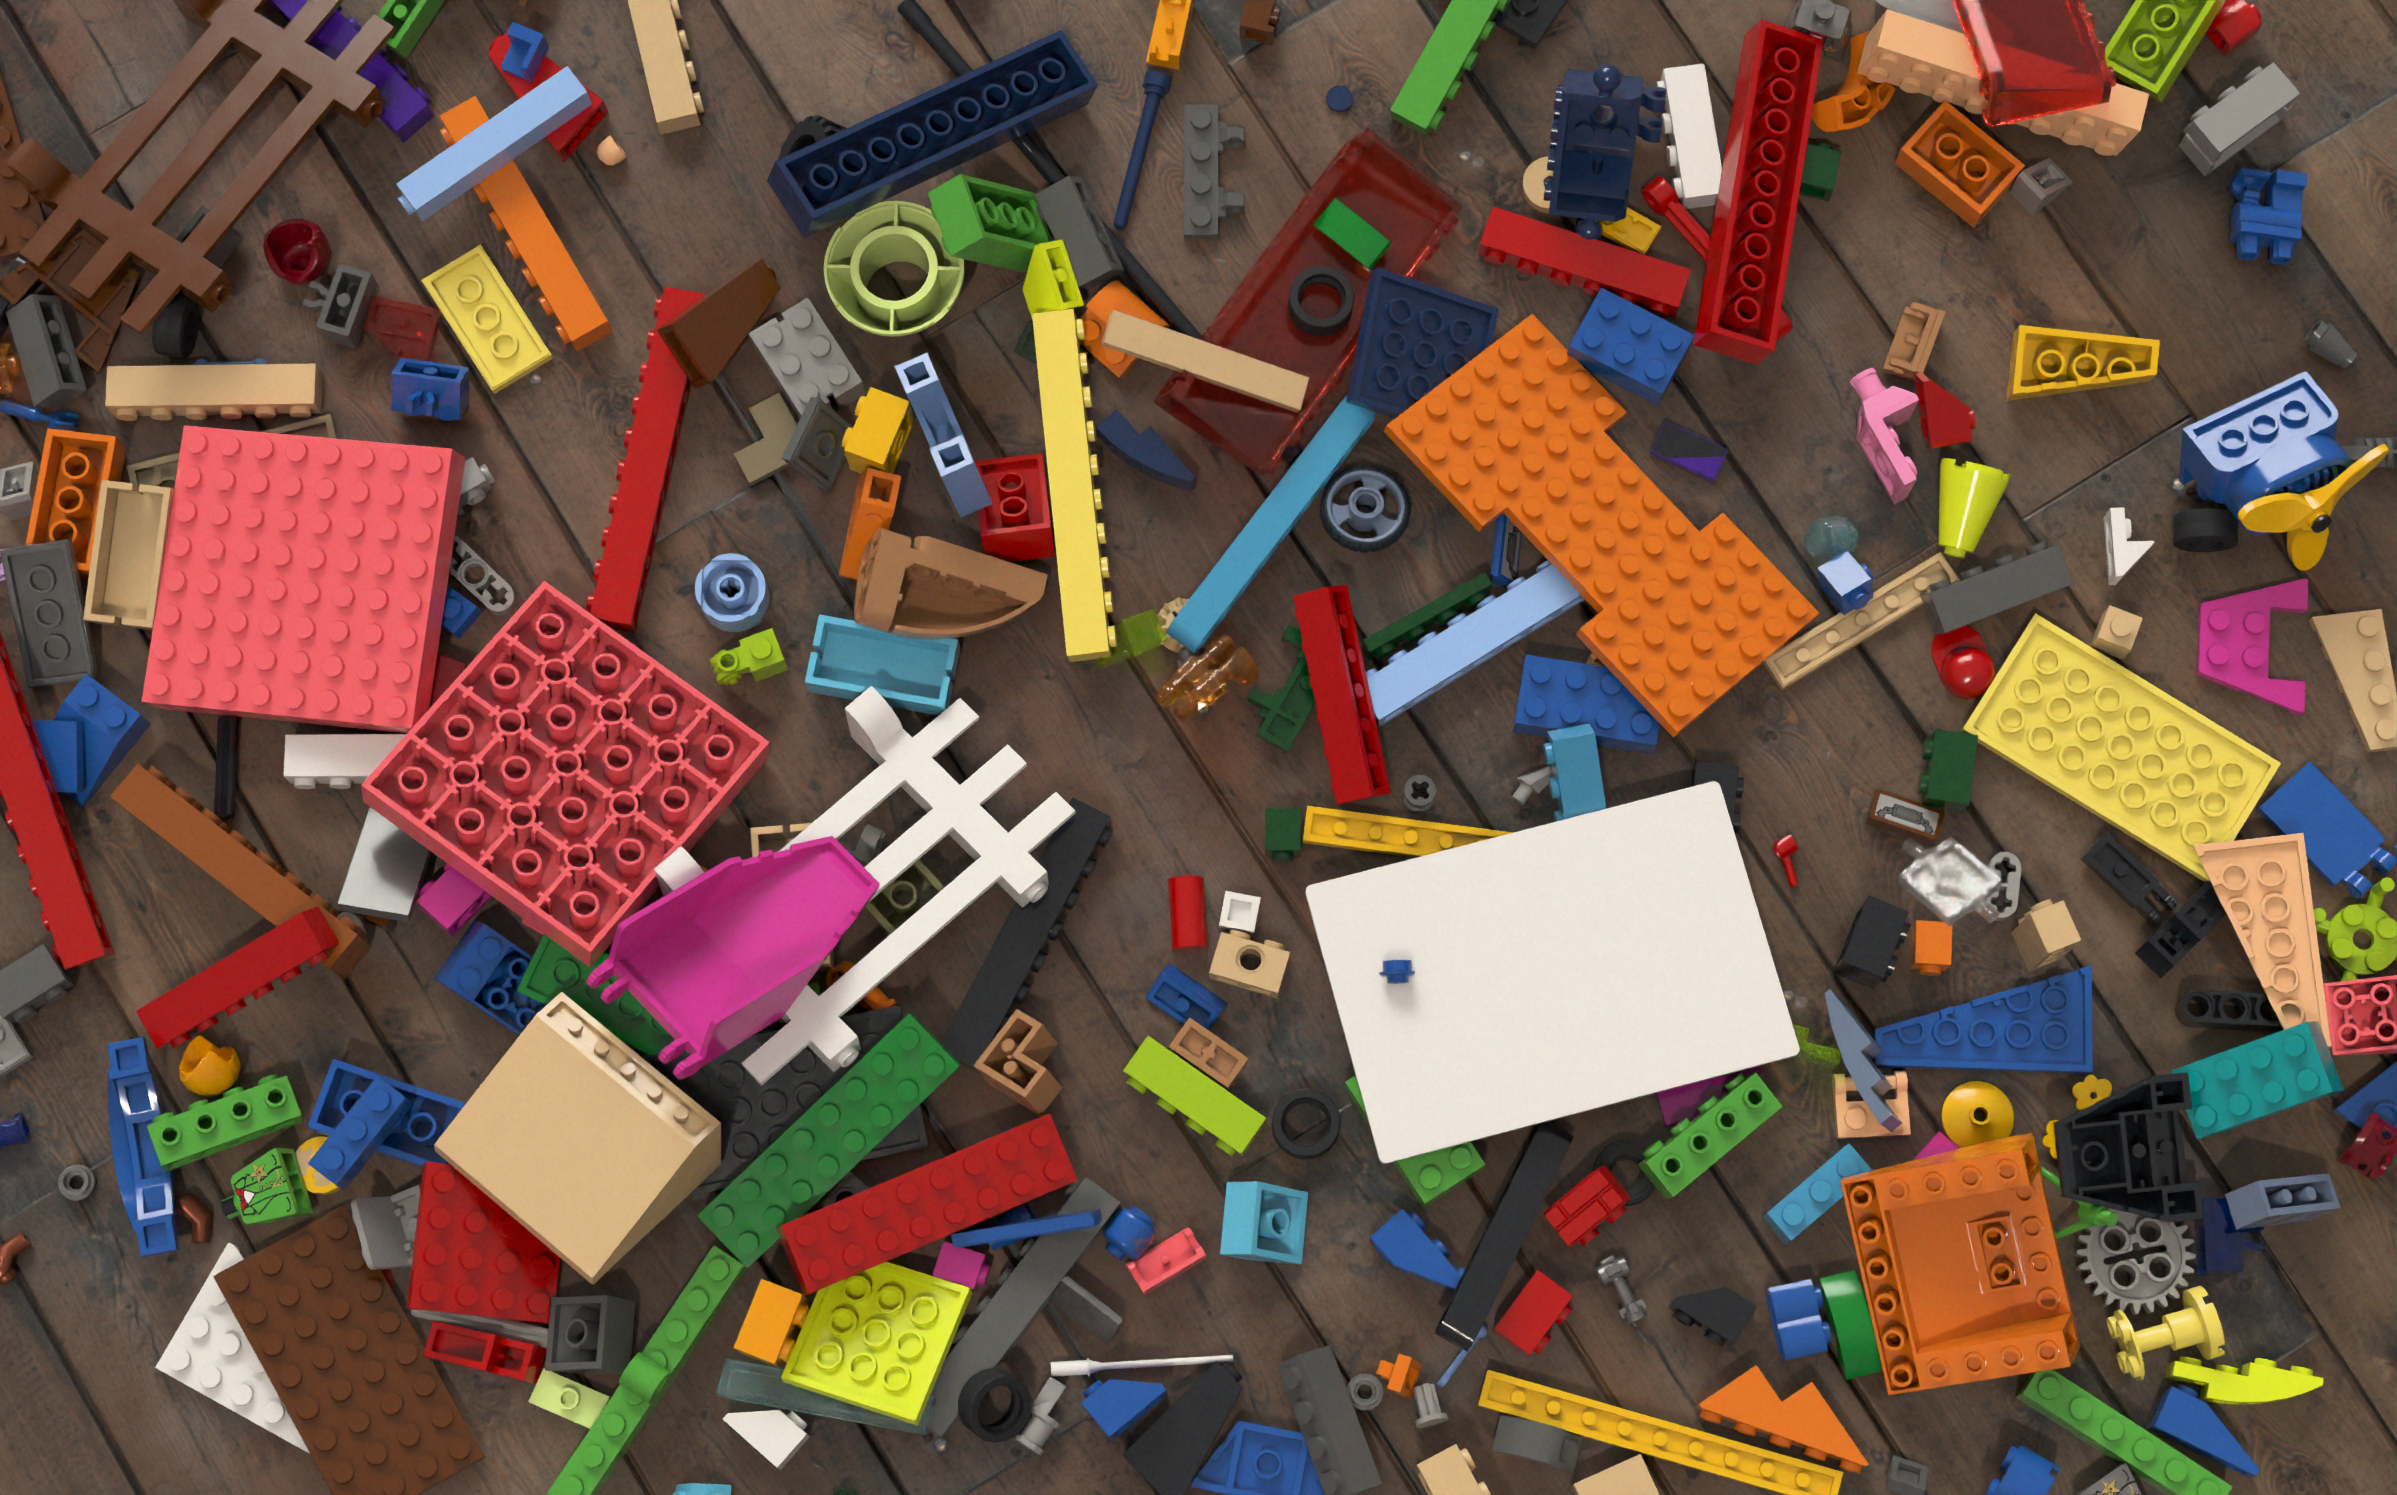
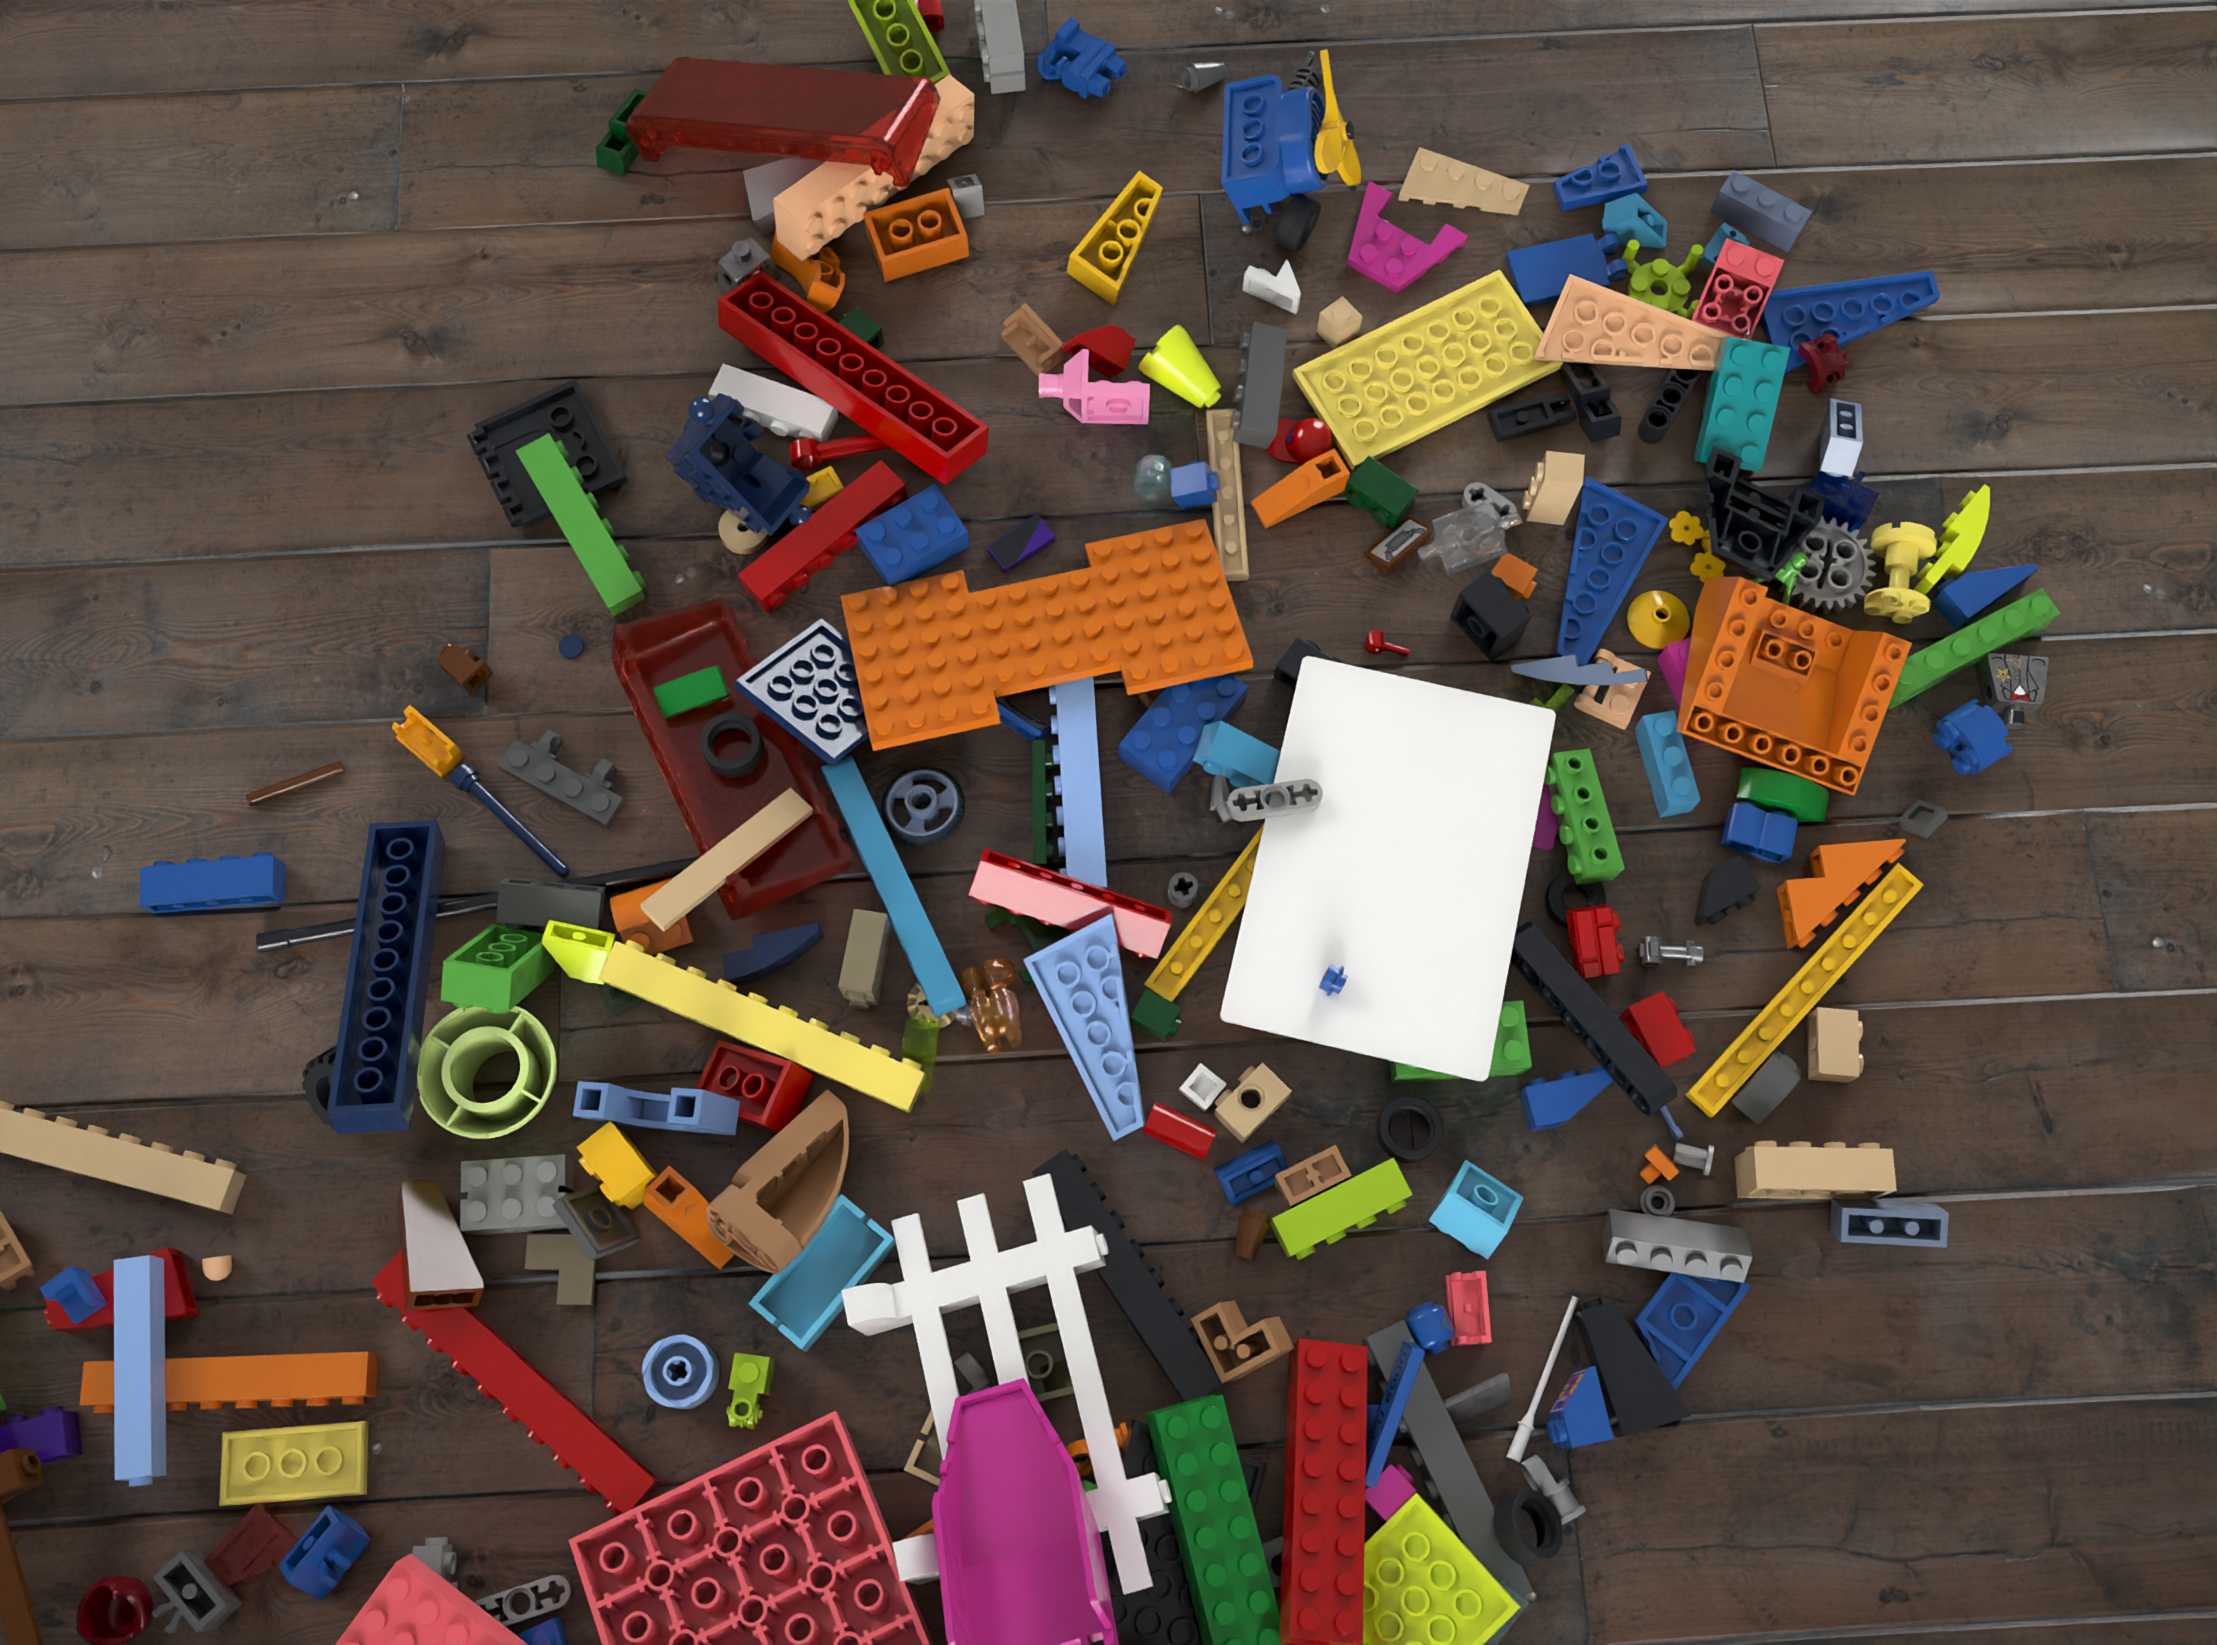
camera: 65 degrees left, 5 degrees down
(1128, 1027) = (1251, 1232): none -> reddish brown cone
(1184, 539) = (865, 958): none -> dark tan brick
(1254, 764) = (1088, 1003): none -> light blue wing
(1524, 811) = (1299, 805): none -> light grey beam
(1904, 689) = (1302, 489): none -> orange slope

